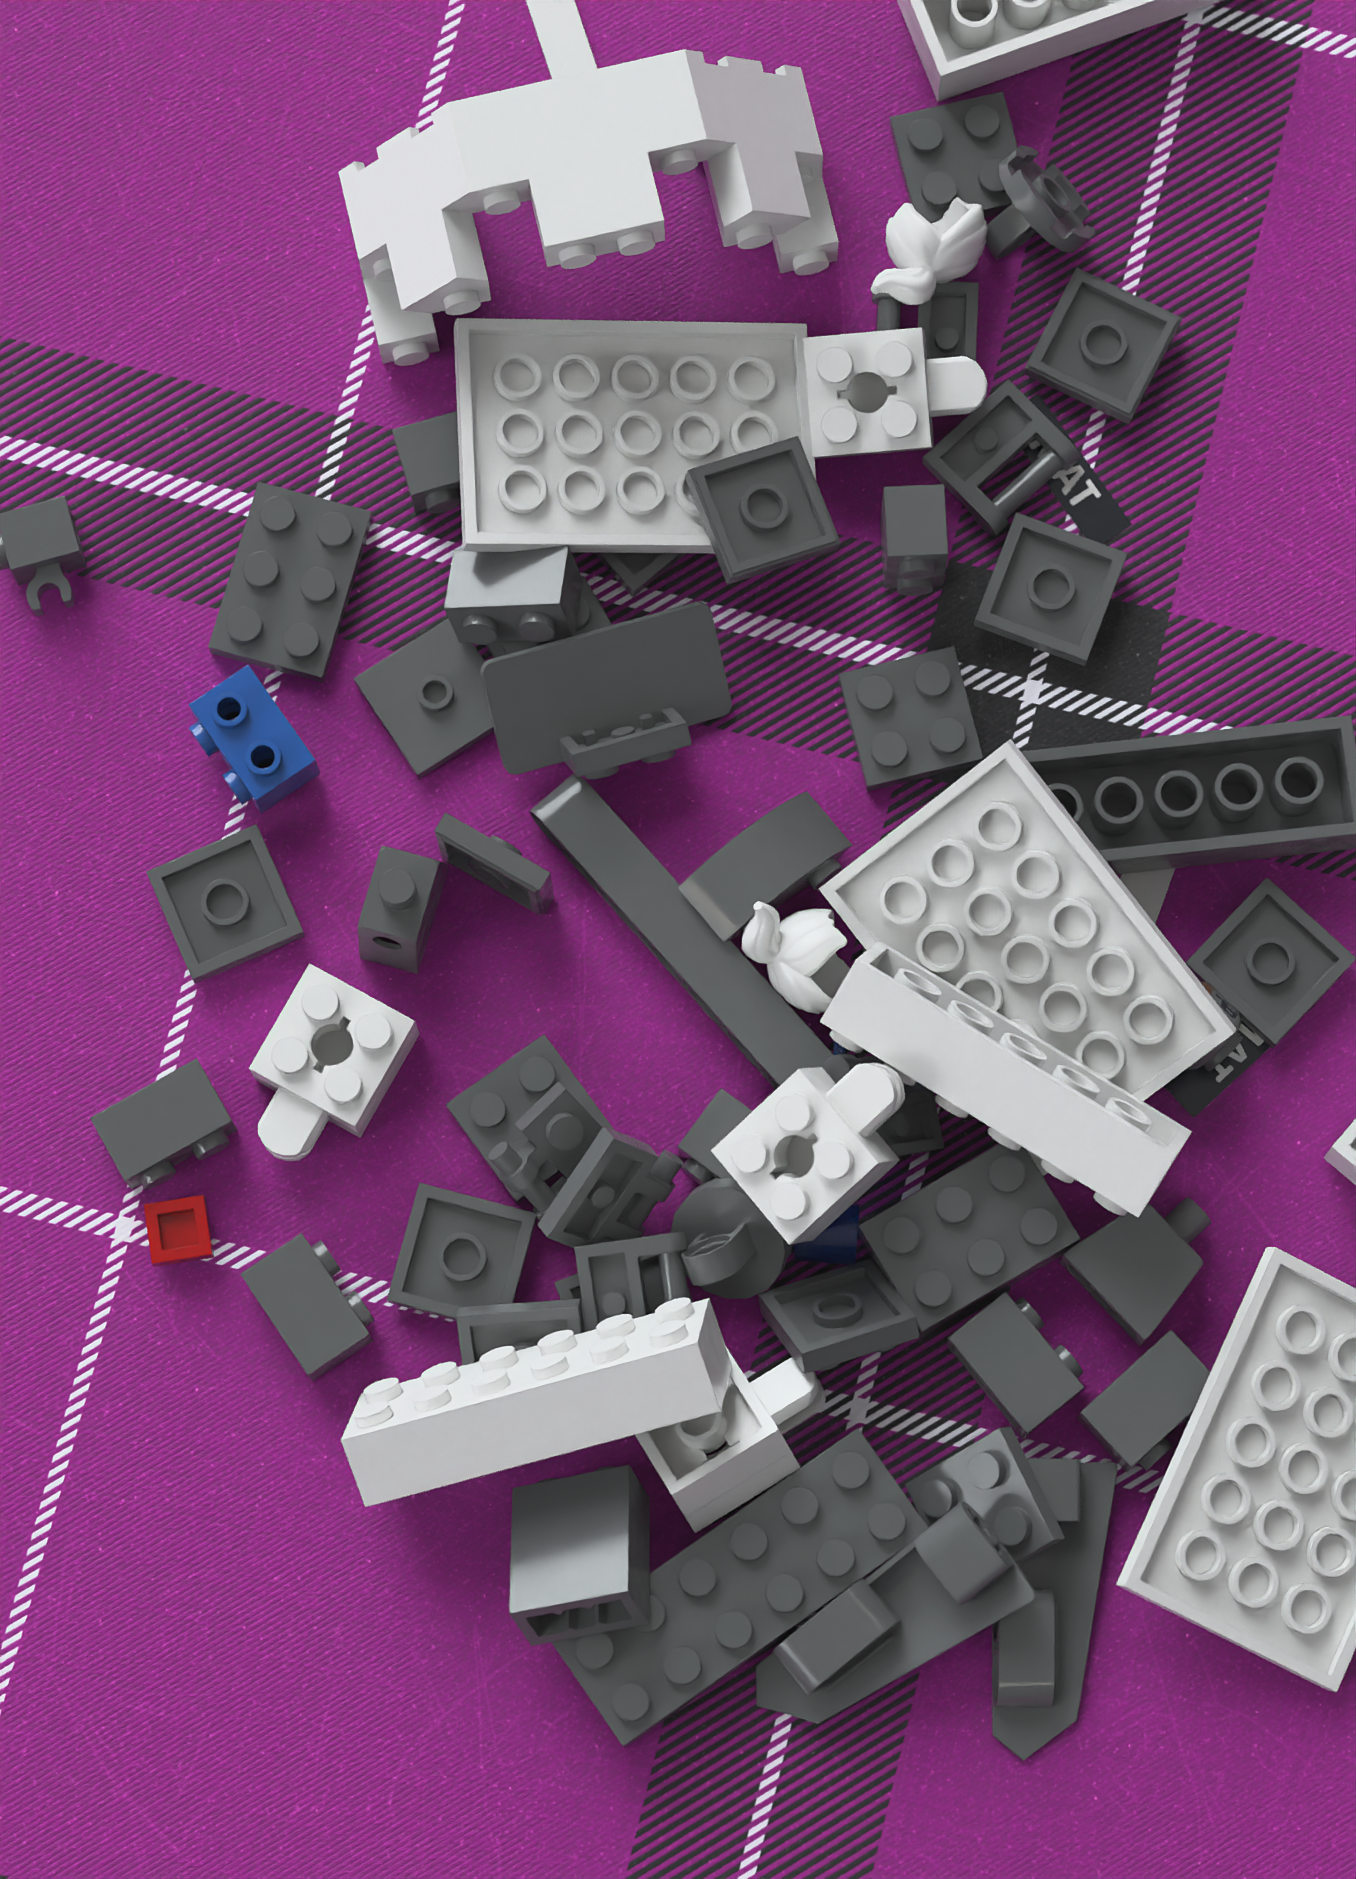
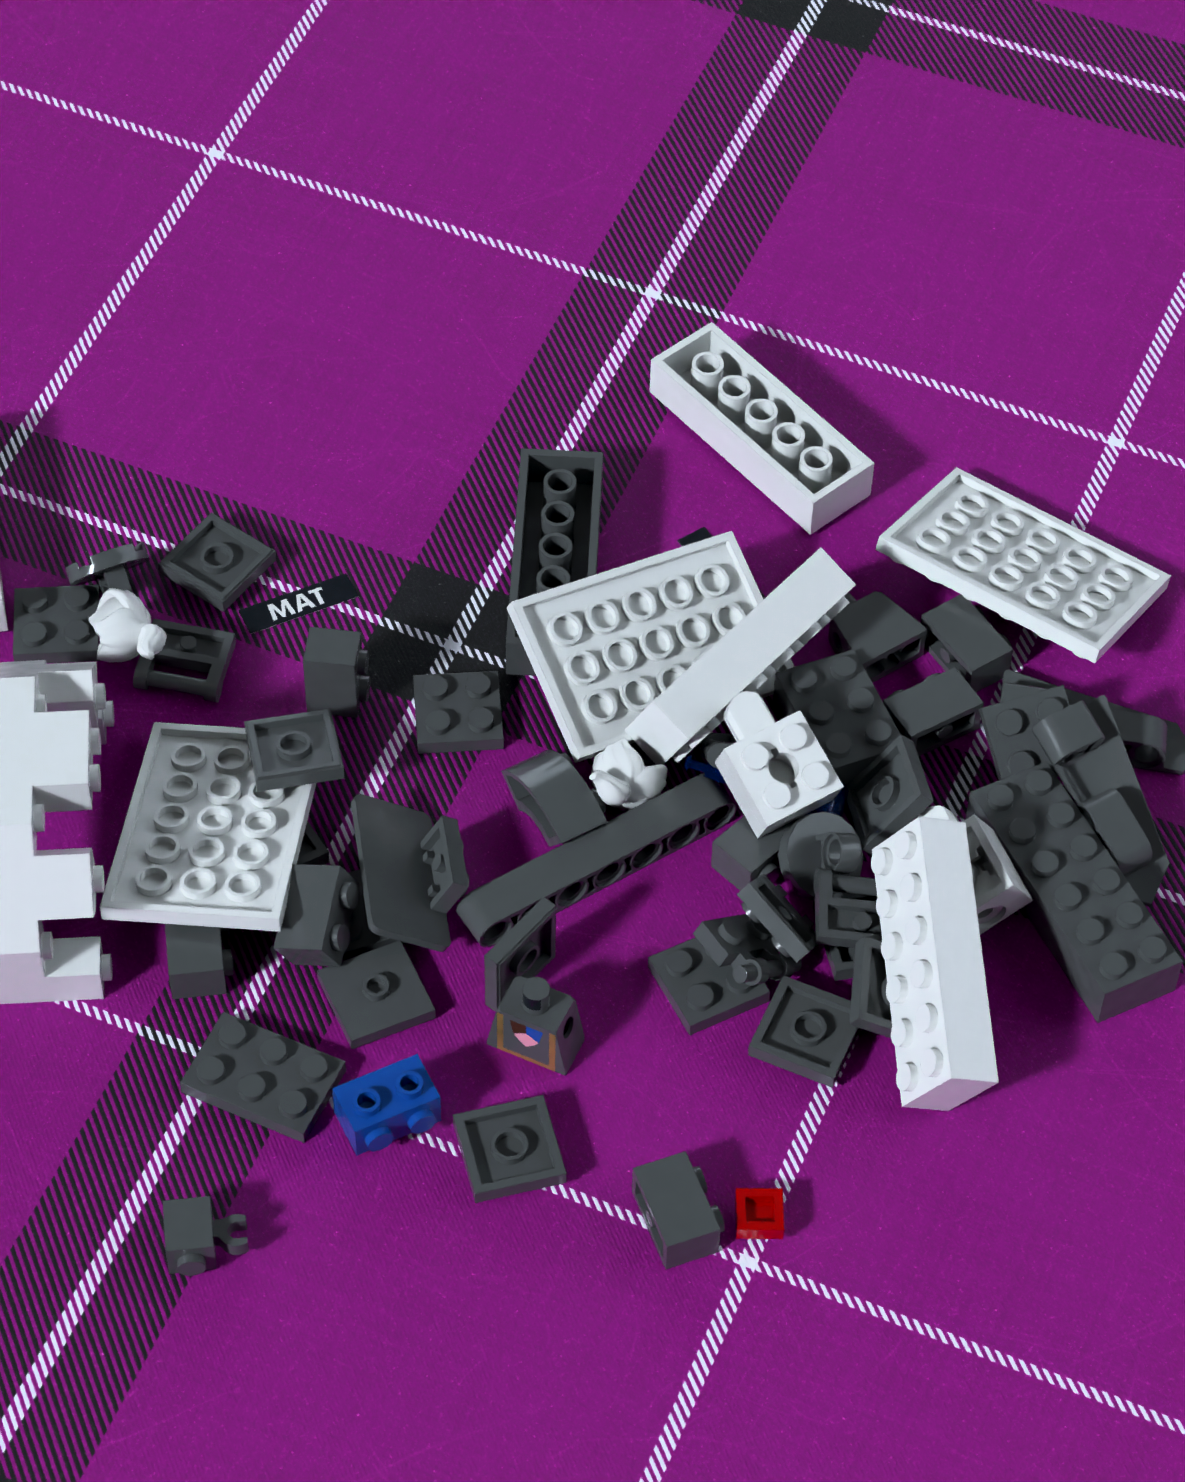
camera: 85 degrees left, 25 degrees down
(308, 1306) = (831, 1132): dark grey brick -> none
(327, 1061) = (641, 1110): white brick -> none
(580, 1555) = (1044, 965): dark grey brick -> none
(882, 391) = (222, 671): white brick -> none
(987, 443) = (269, 633): dark grey plate -> none
(1050, 589) = (387, 614): dark grey plate -> none
(1271, 962) = (667, 526): dark grey plate -> none

